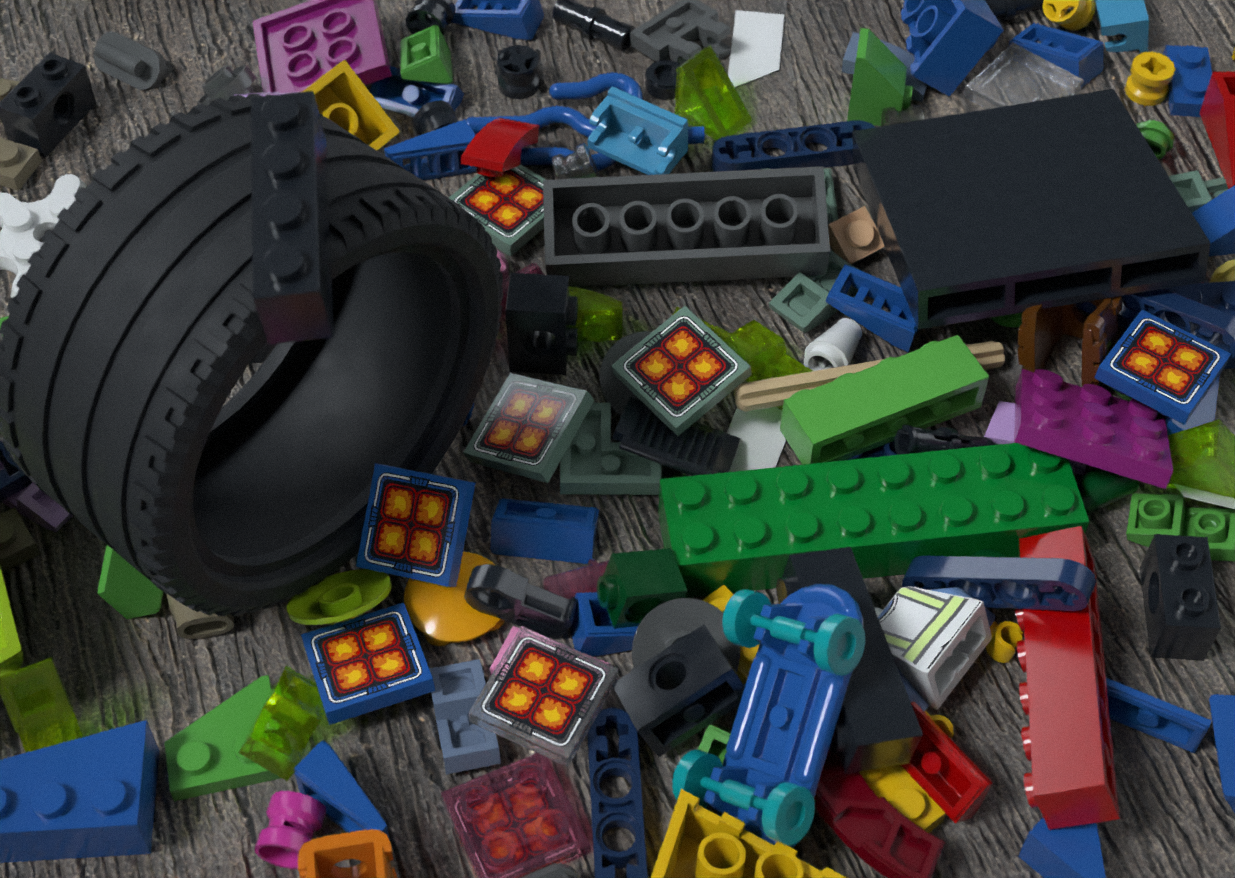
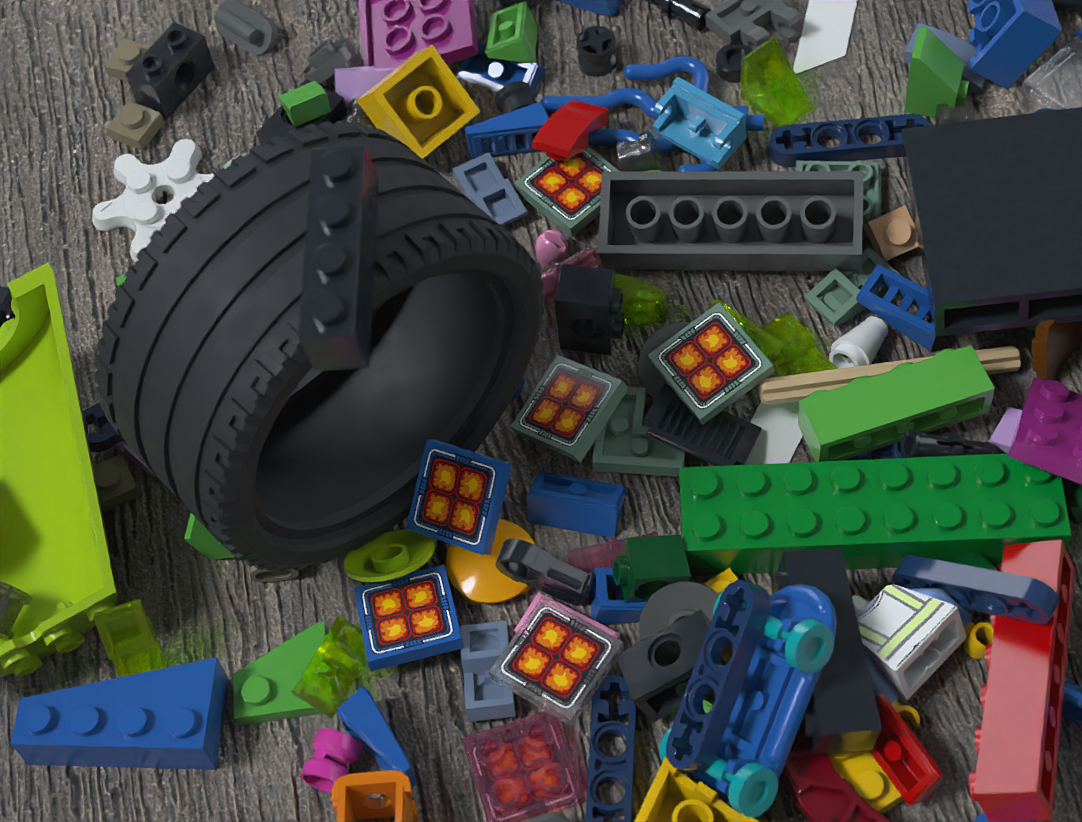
camera: 15 degrees right, 5 degrees up
(727, 688) = (711, 673): none -> dark blue beam

